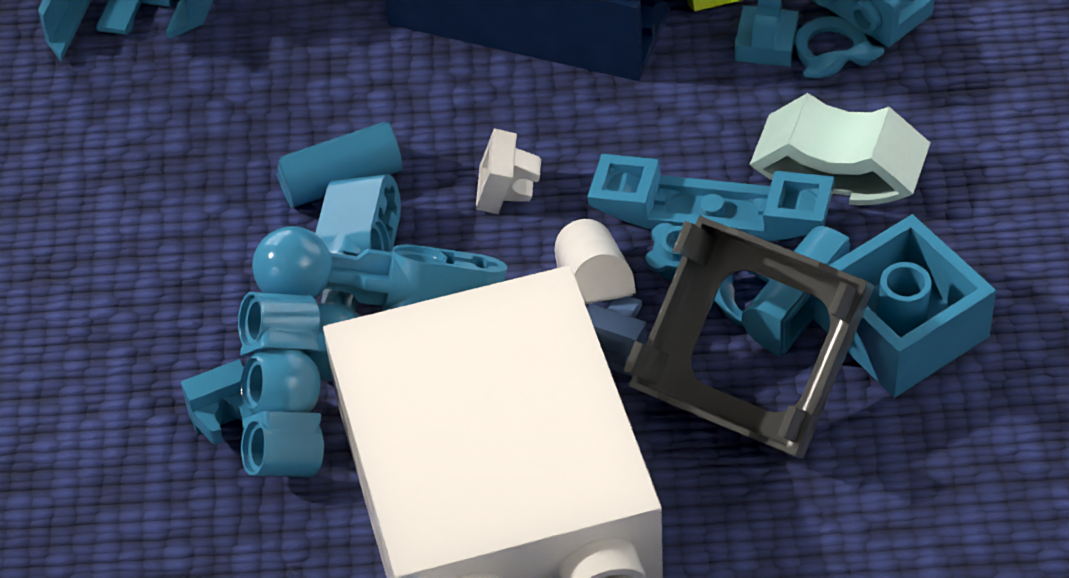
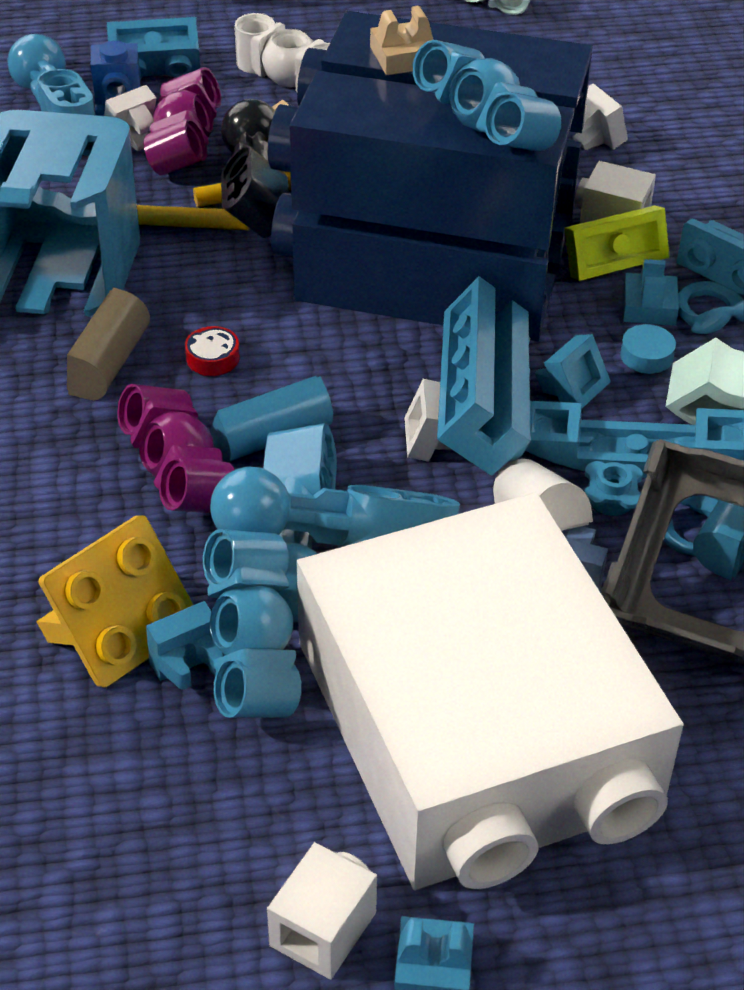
camera: 10 degrees left, 5 degrees down
(152, 347) = (109, 597): none -> yellow bracket
(182, 73) = (105, 344): none -> dark tan brick
(233, 189) = (172, 445): none -> magenta piece
(292, 83) = (212, 351): none -> tile
(559, 129) = (485, 379): none -> dark azure brick
(663, 122) = (575, 371): none -> dark azure tile
(749, 95) = (648, 348): none -> dark azure piece

